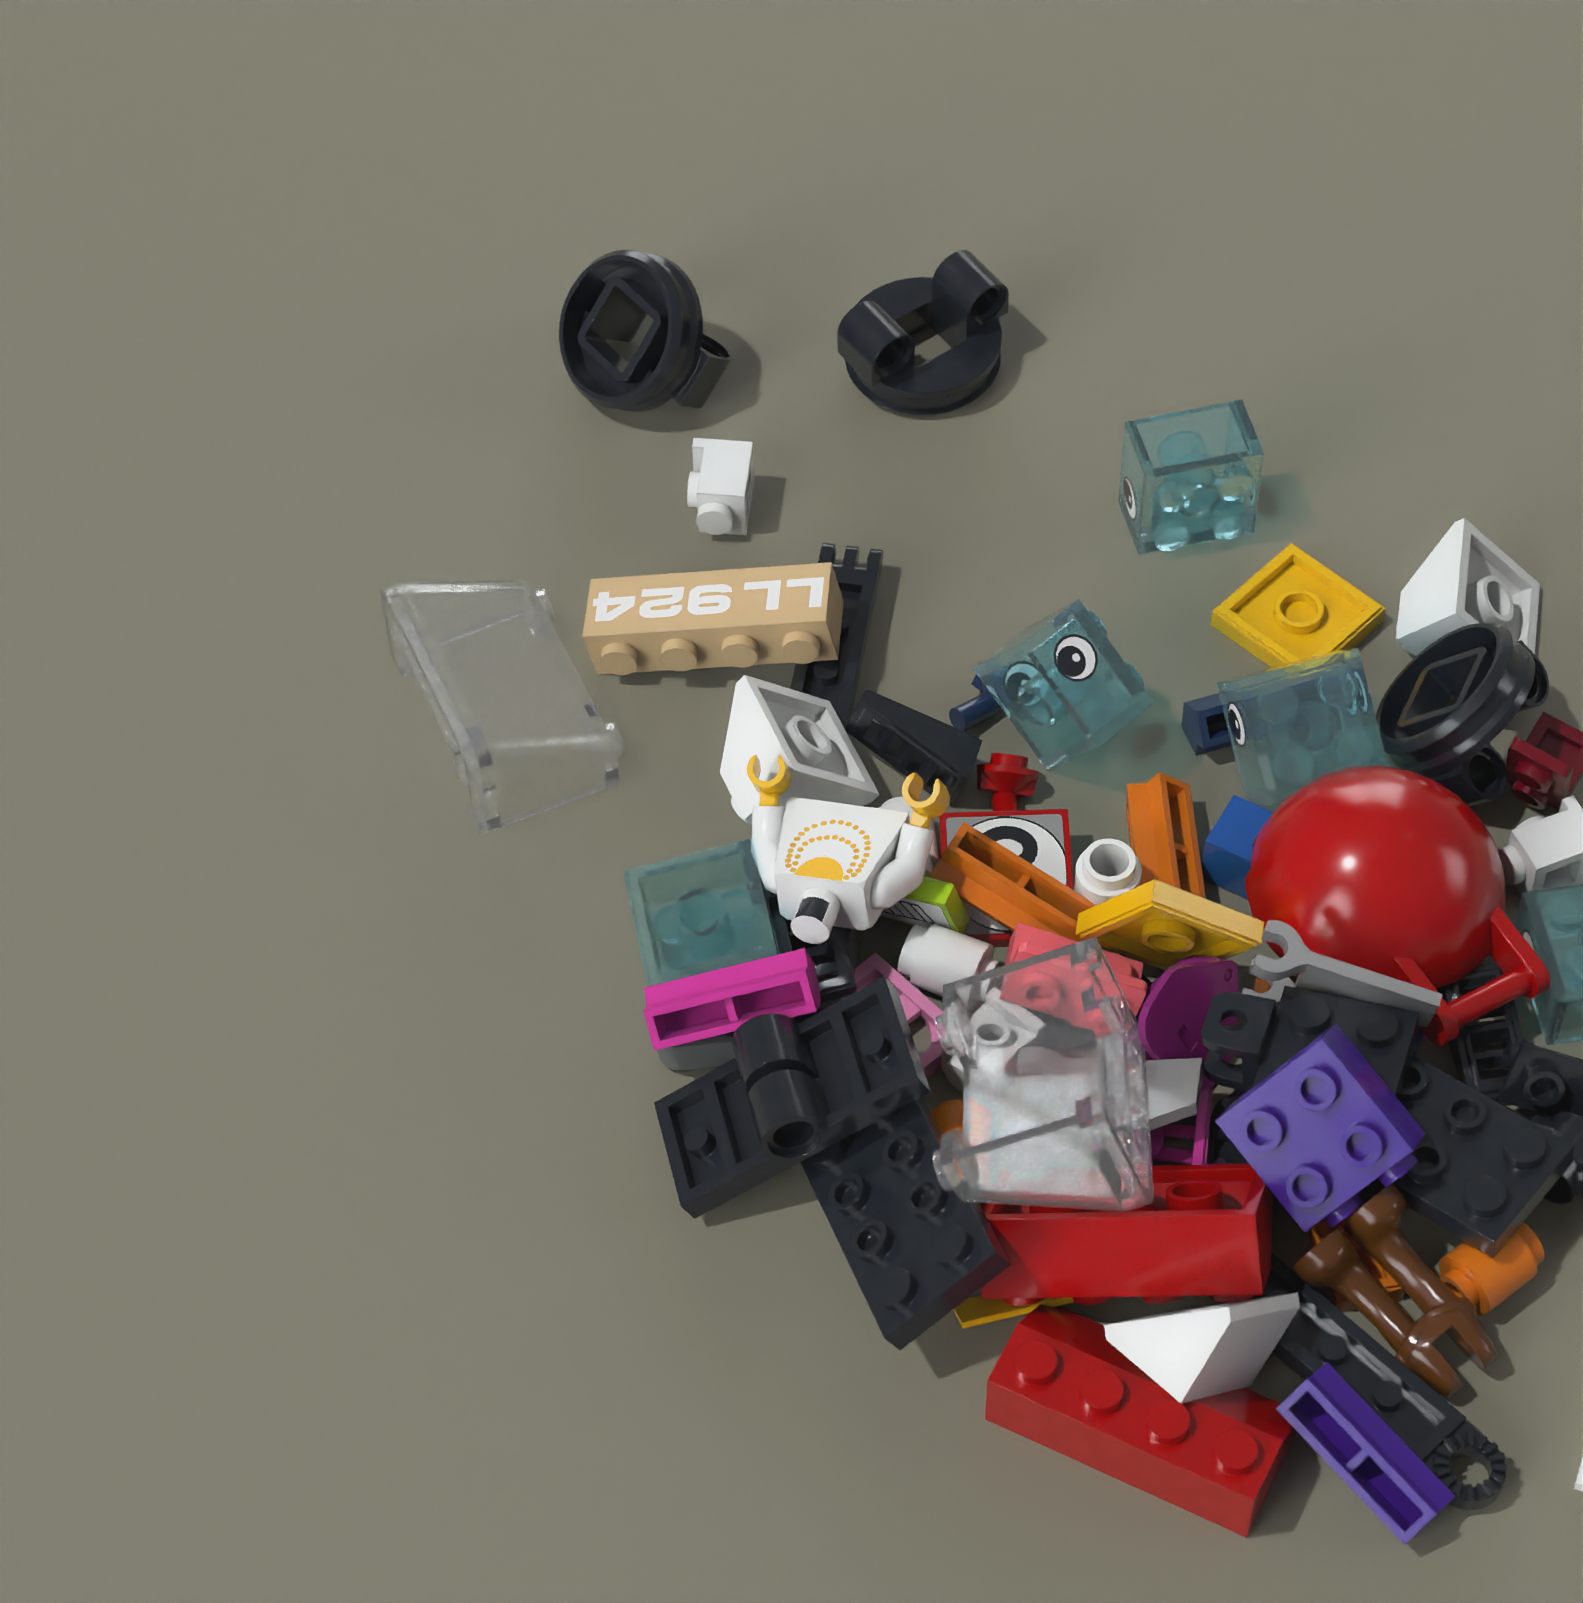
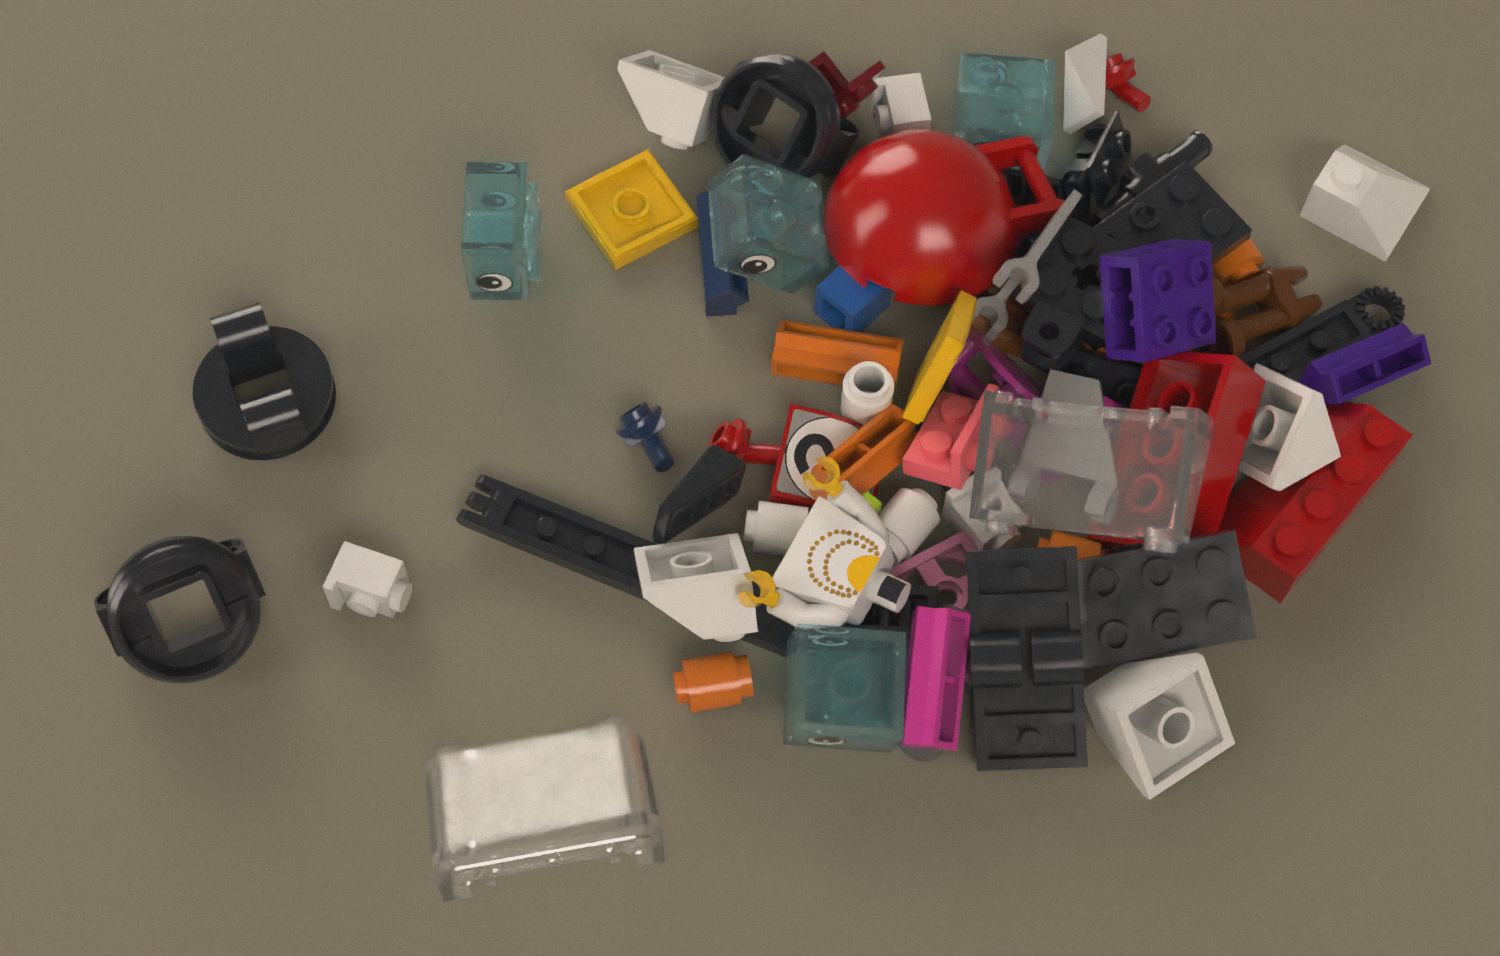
camera: 80 degrees left, 10 degrees up
(690, 813) = (713, 681): none -> orange brick
(713, 619) = (524, 617): tan brick -> none
(761, 1277) = (1159, 719): none -> white slope
(1064, 685) = (691, 367): clear light blue brick -> none

